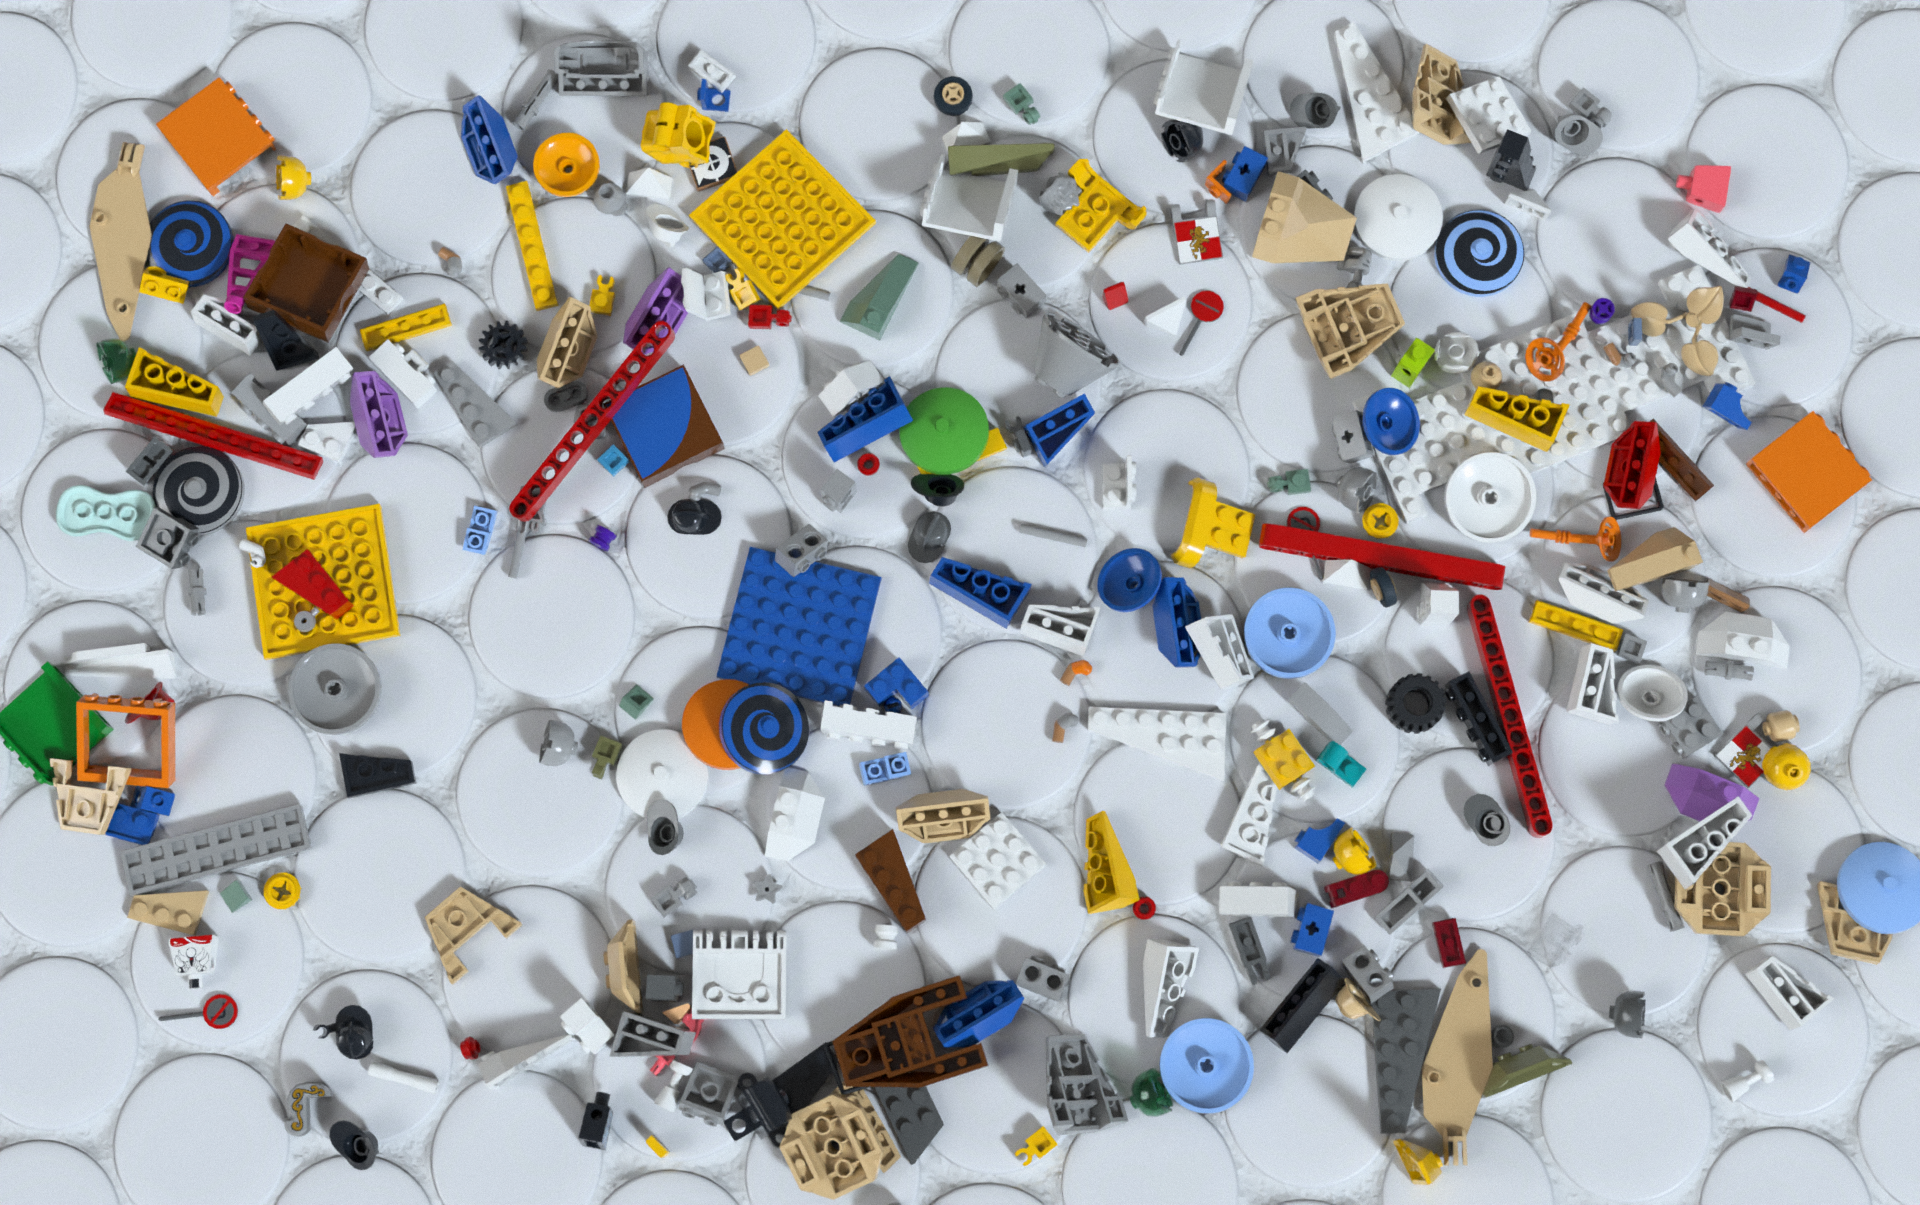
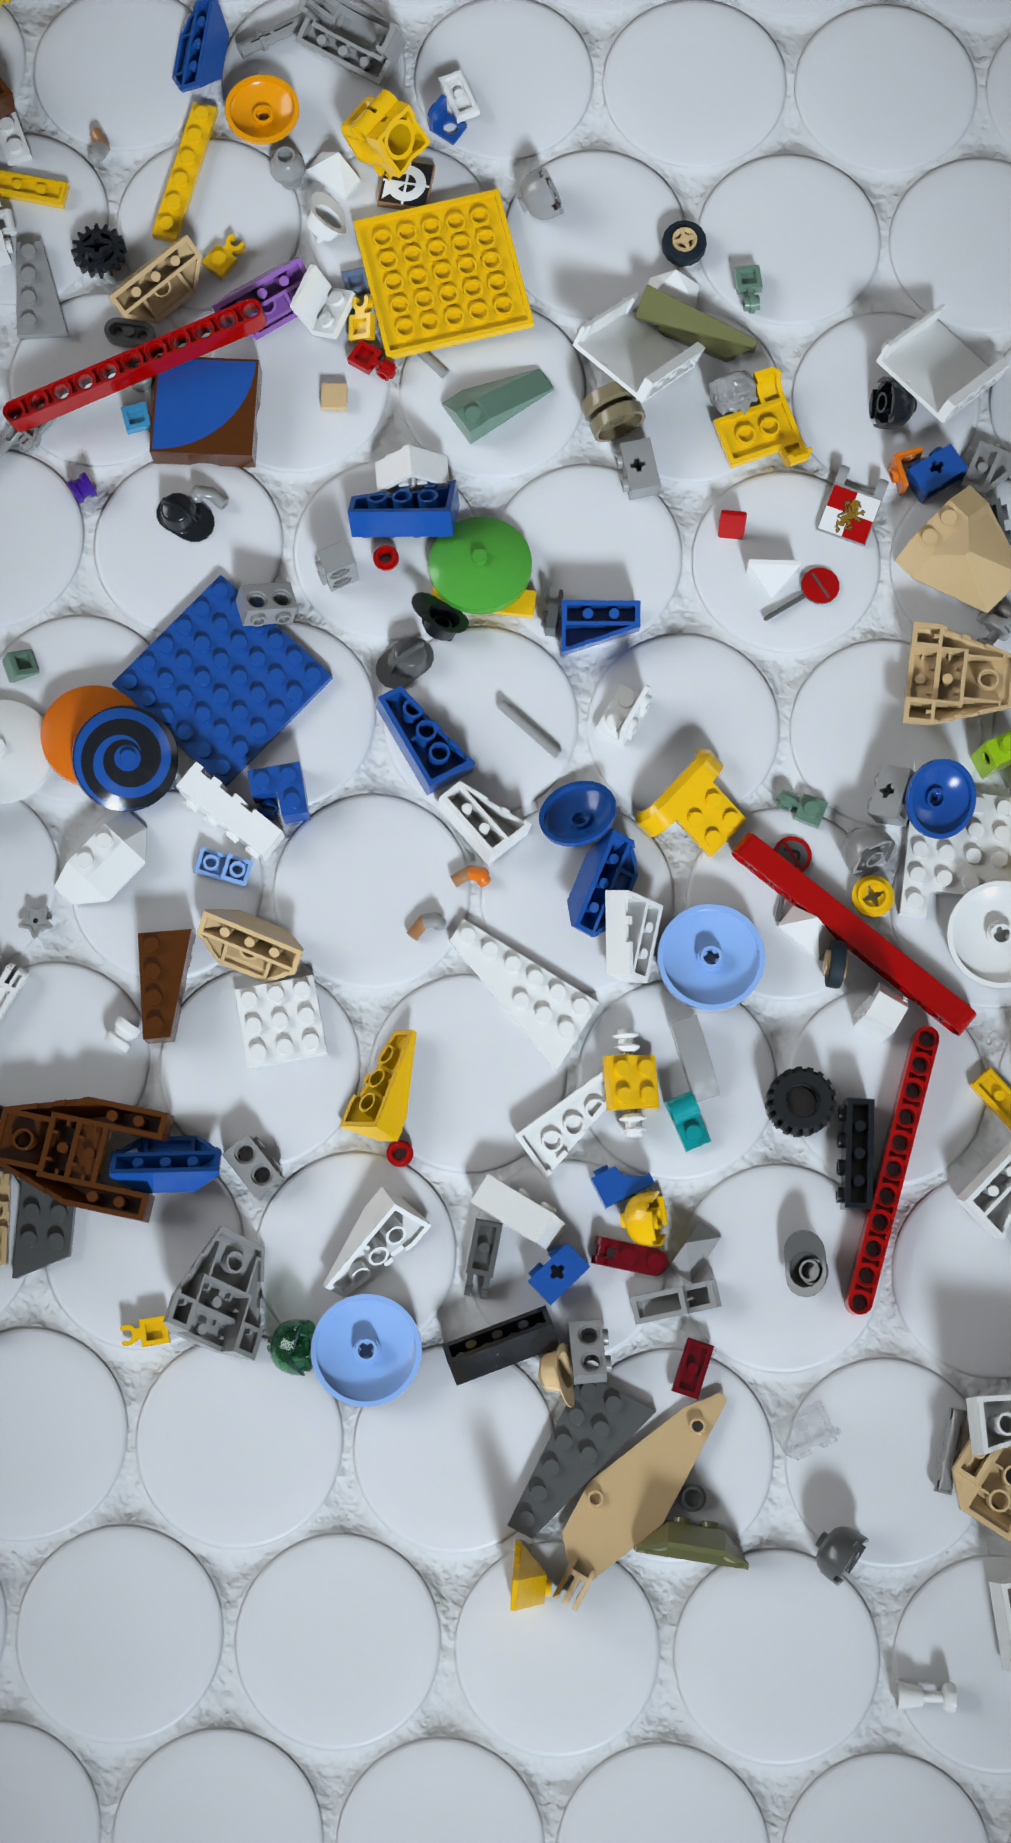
camera: 30 degrees right, 0 degrees up
(822, 118) = (539, 195): none -> light grey cylinder
(1070, 356) = (647, 556): light grey cone -> none

